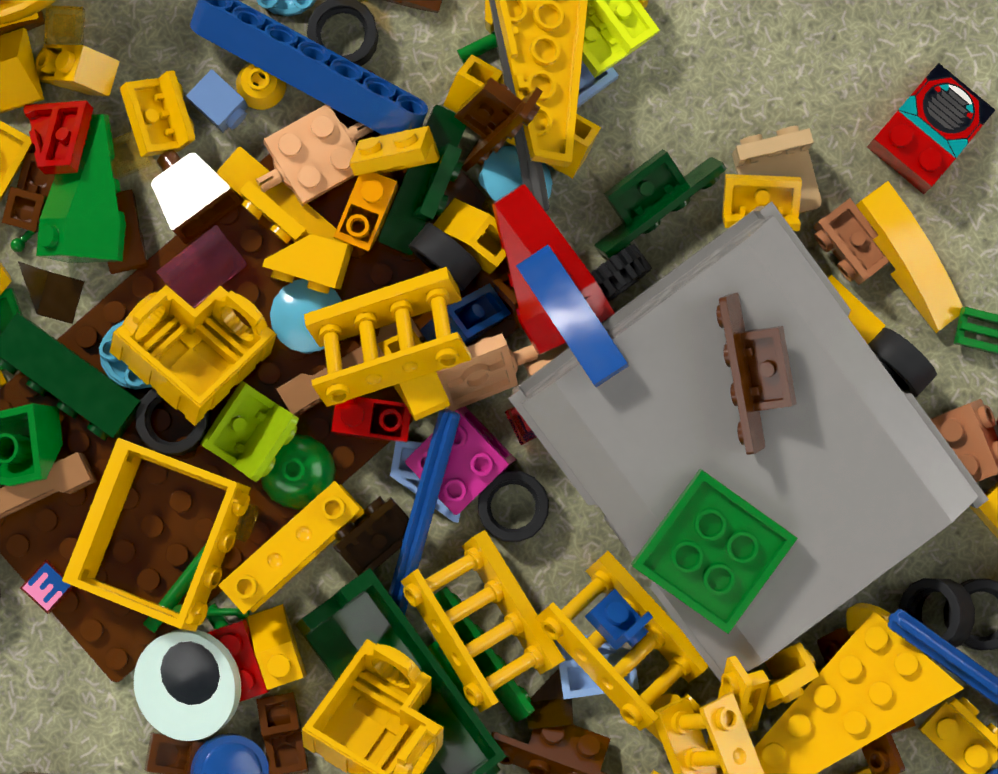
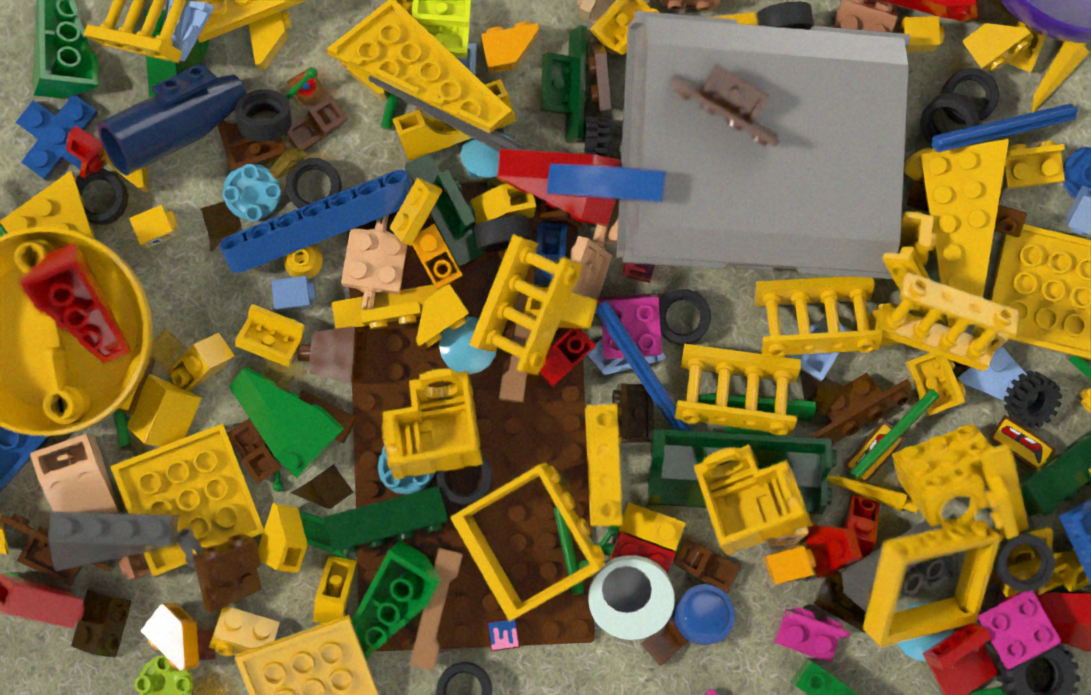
camera: 55 degrees left, 0 degrees up
(59, 134) = (233, 404): red wing -> none
(202, 267) = (387, 383): clear pink panel -> none
(250, 432) = (513, 434): lime bracket -> none
(299, 473) = (557, 427): green cylinder -> none
(495, 116) = (445, 133): reddish brown bracket -> none
(618, 621) = (804, 308): blue bracket -> none
(641, 110) = (509, 46): none -> light orange slope
(694, 215) = (599, 67): none -> reddish brown wing
(714, 551) = (813, 214): green plate -> none

